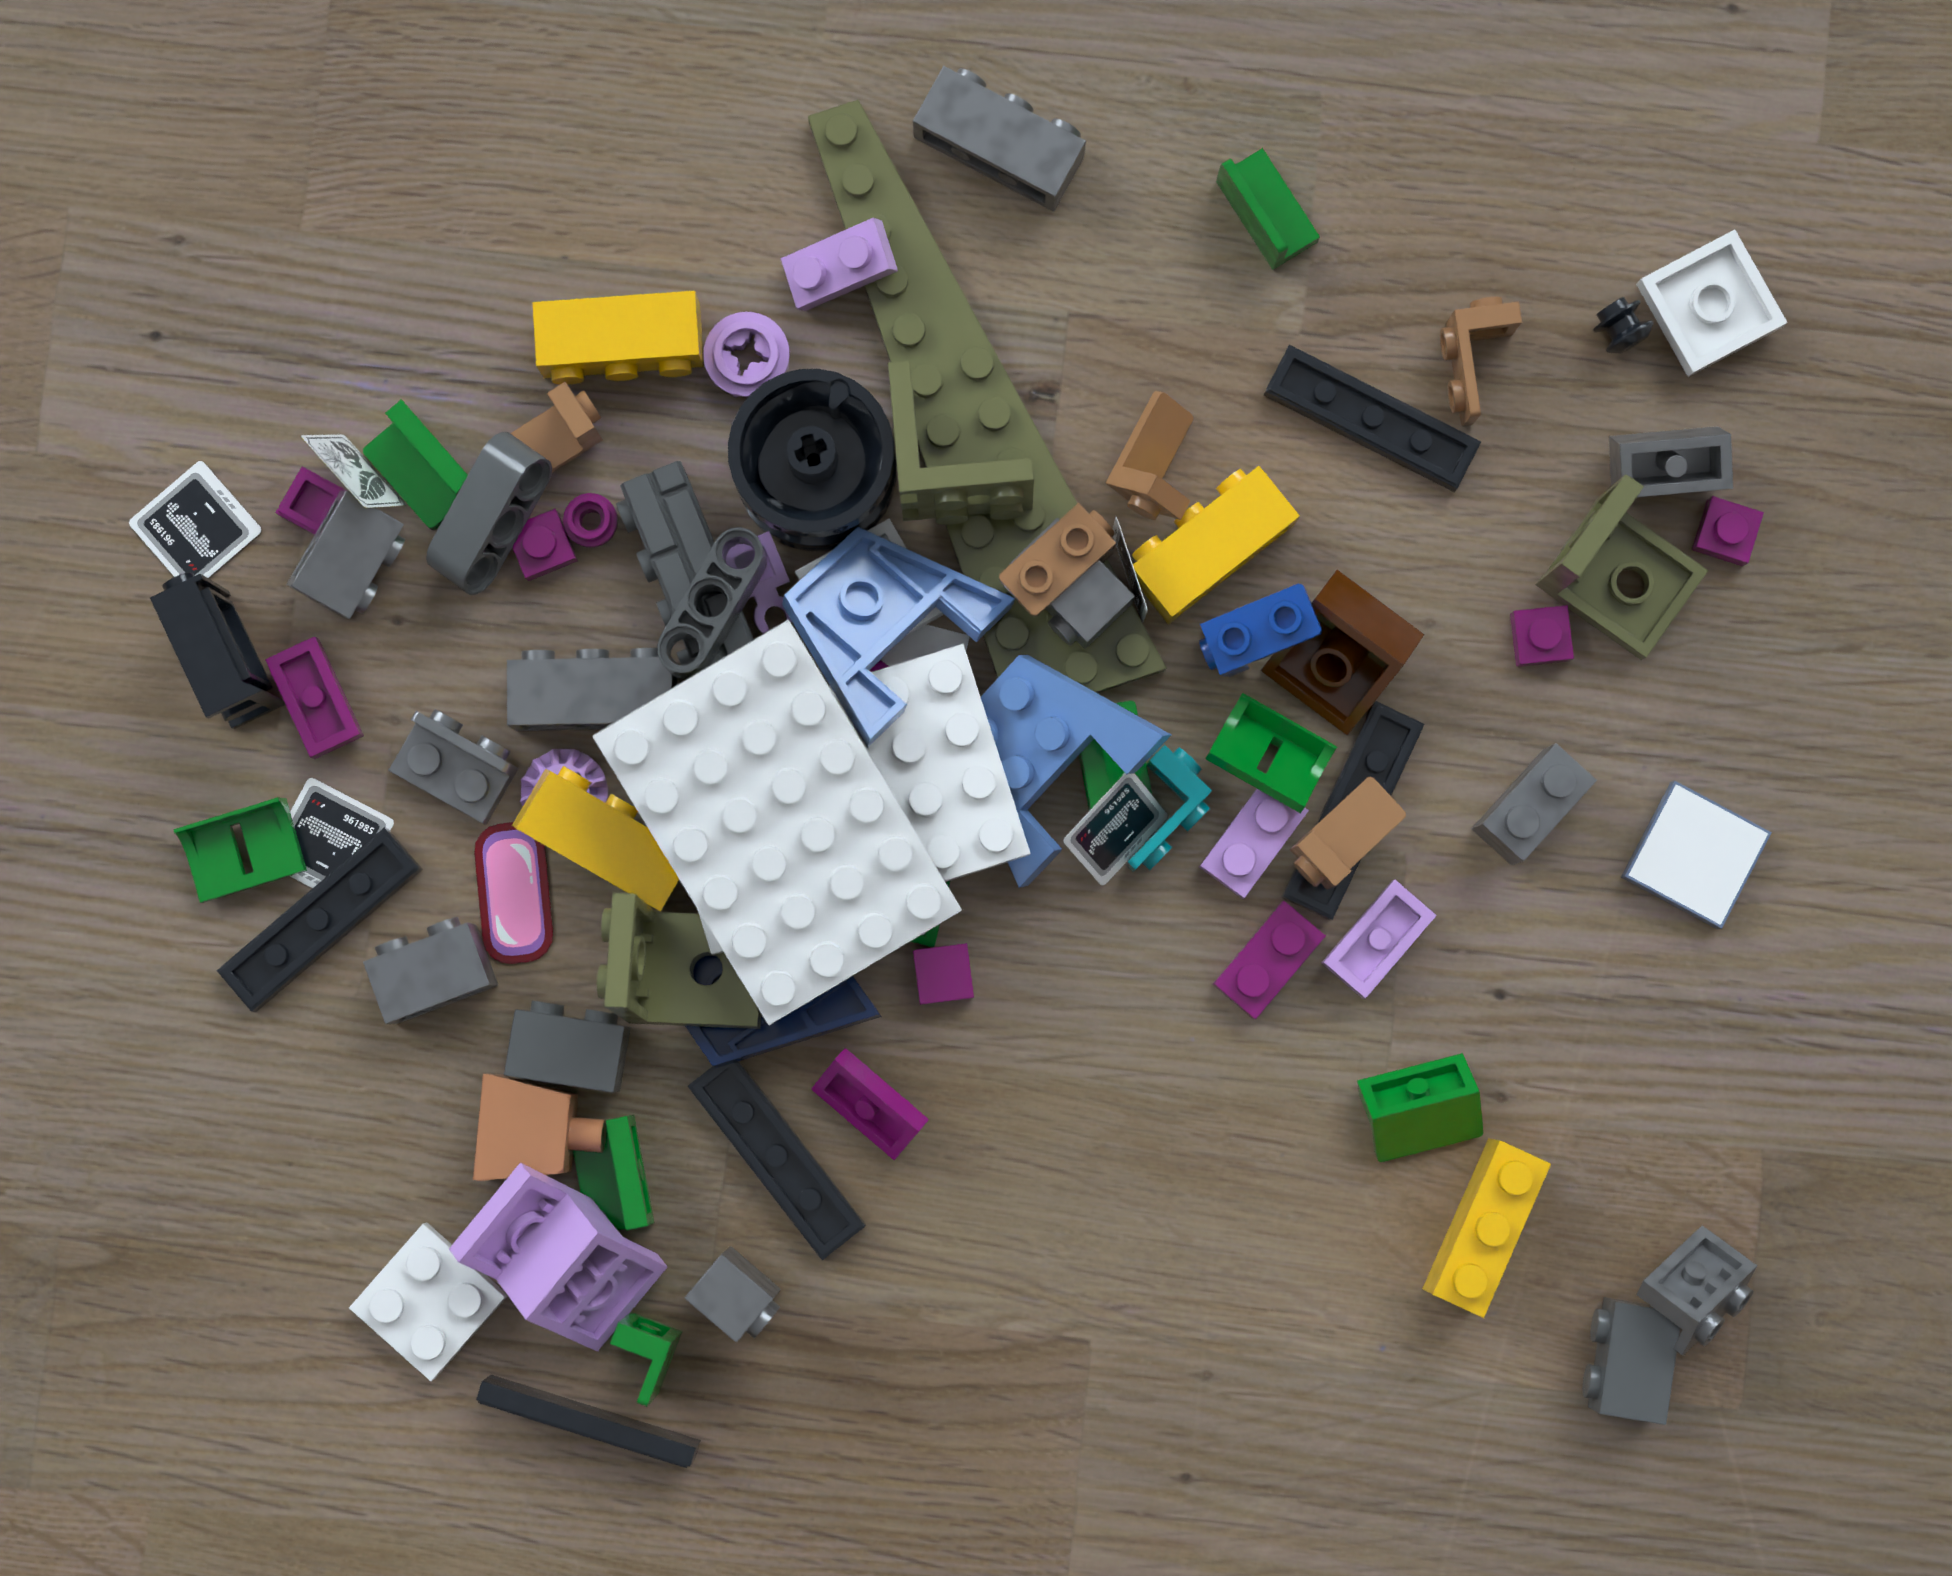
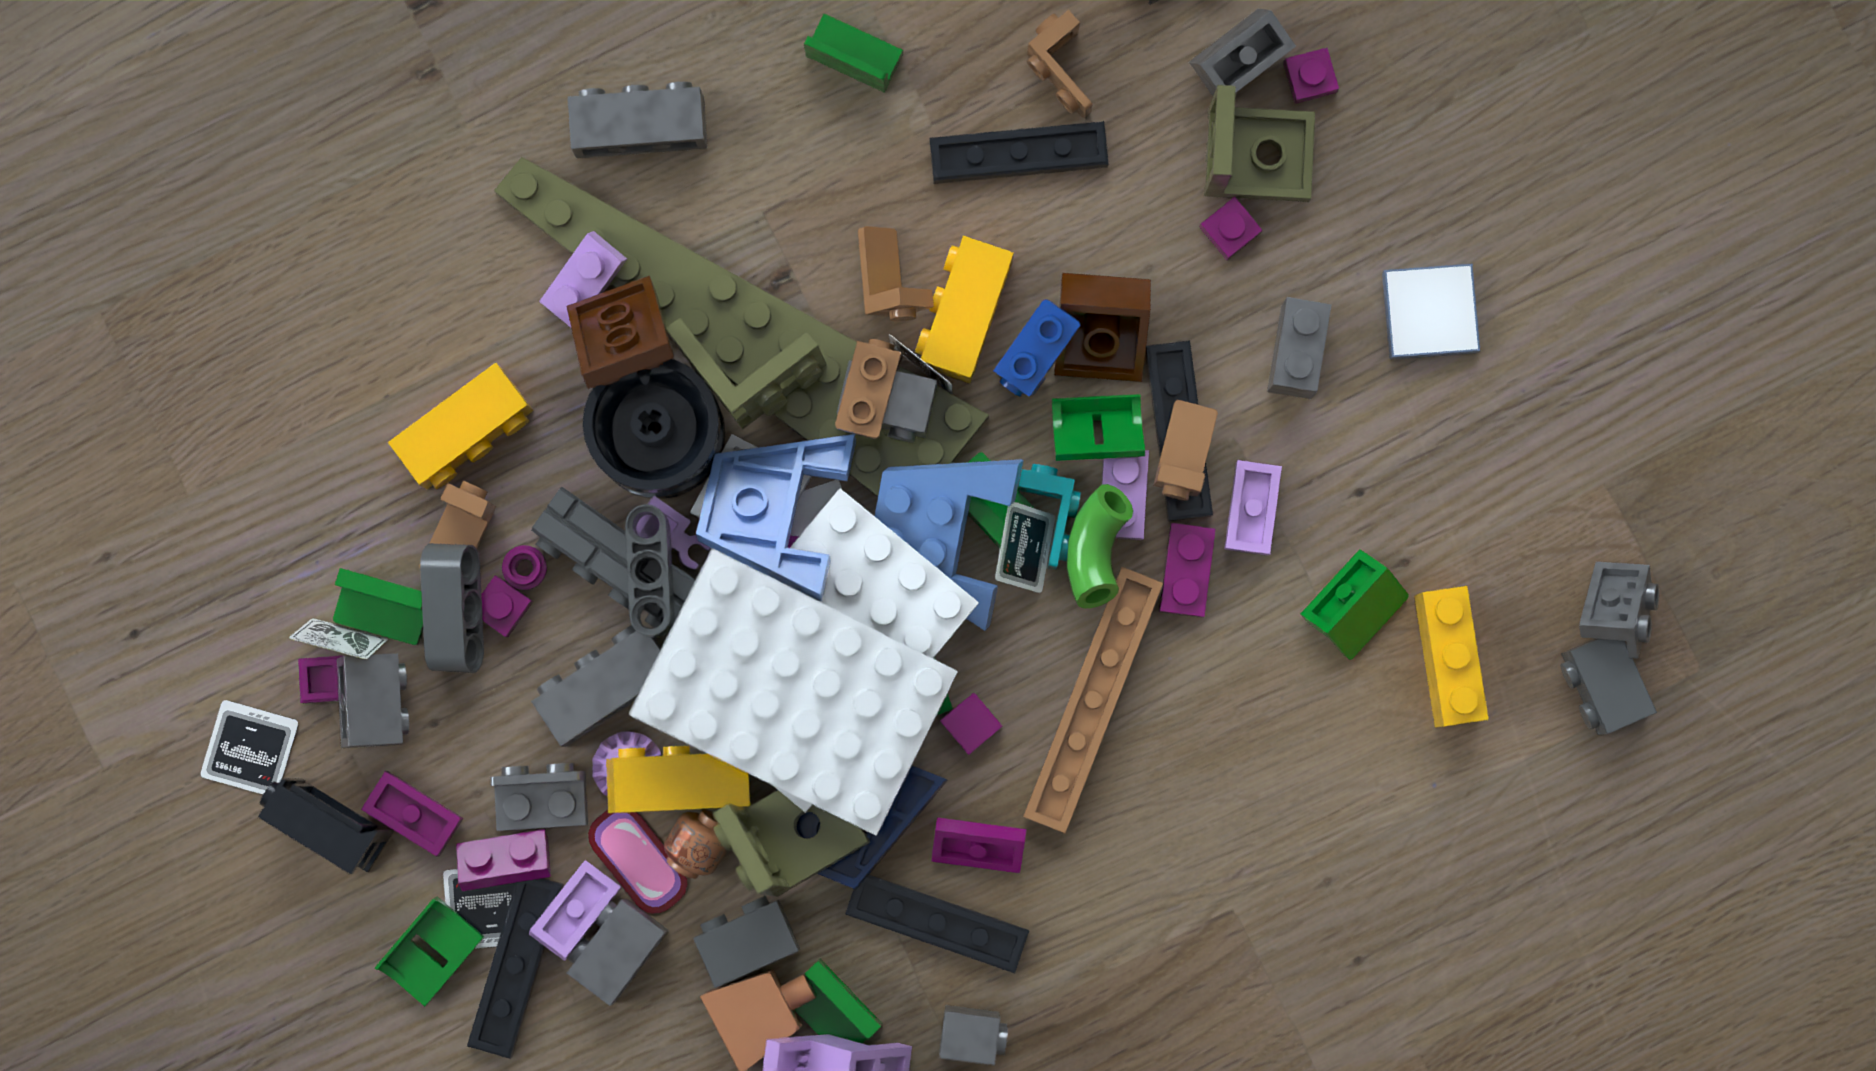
camera: 30 degrees left, 0 degrees up
(375, 804) = (503, 860): none -> plate
(413, 902) = (574, 910): none -> lavender plate
(575, 914) = (694, 845): none -> nougat head
(734, 333) = (541, 372): lavender gear -> none
(838, 338) = (619, 332): none -> reddish brown plate
(1084, 1031) = (1093, 700): none -> medium nougat plate
(1186, 869) = (1092, 545): none -> bright green cylinder

